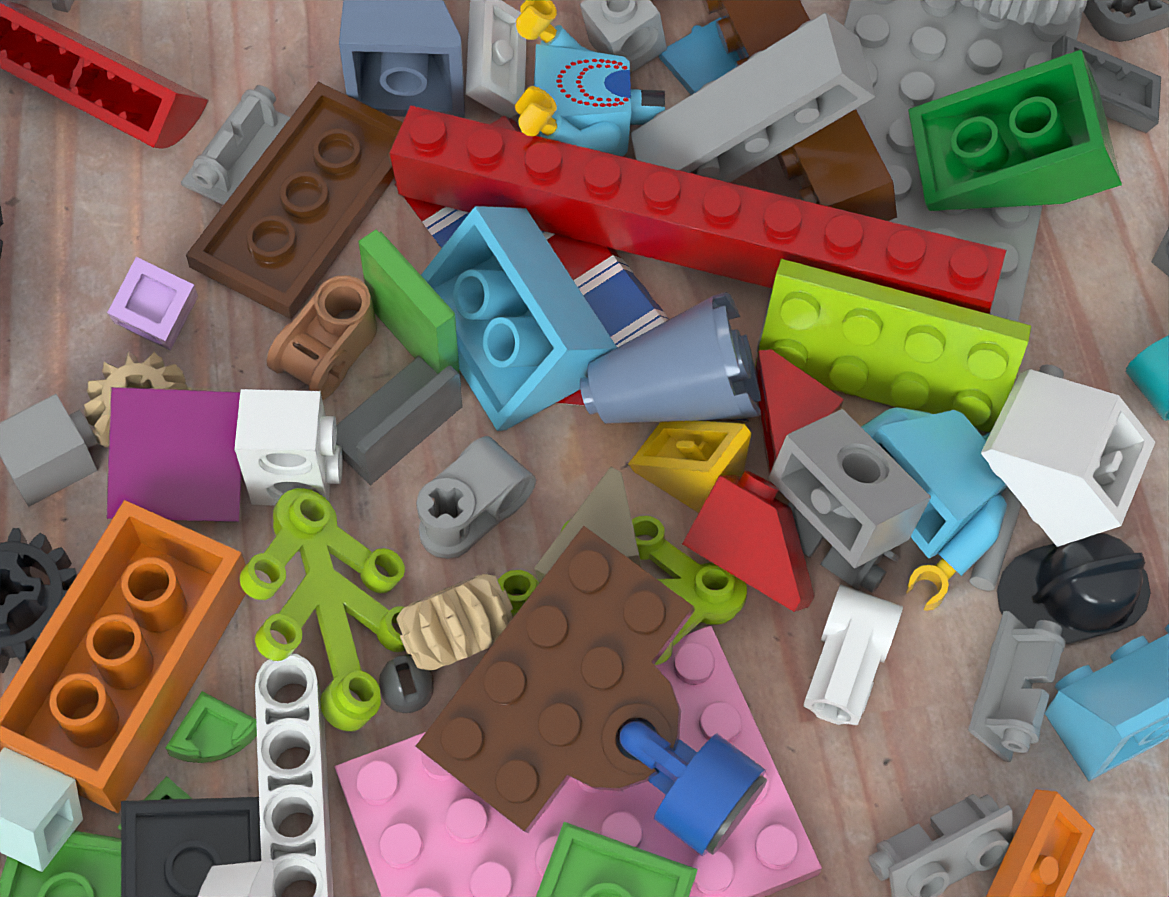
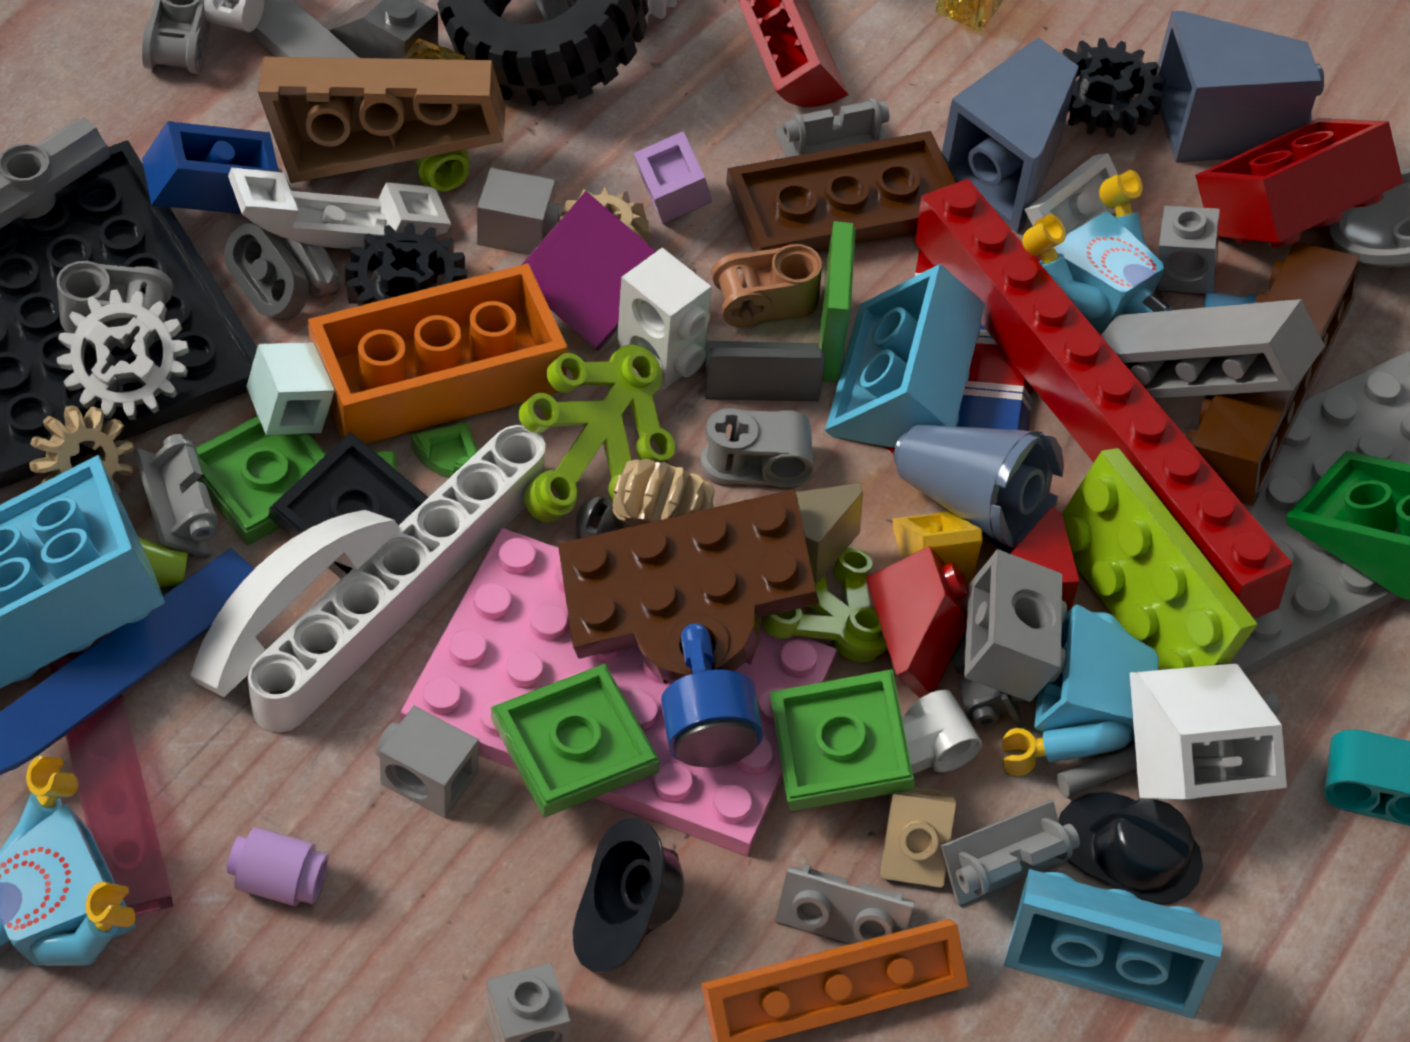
camera: 40 degrees right, 10 degrees down
(814, 711) = (841, 740): none -> bright green tile
(931, 728) = (915, 831): none -> tan bracket

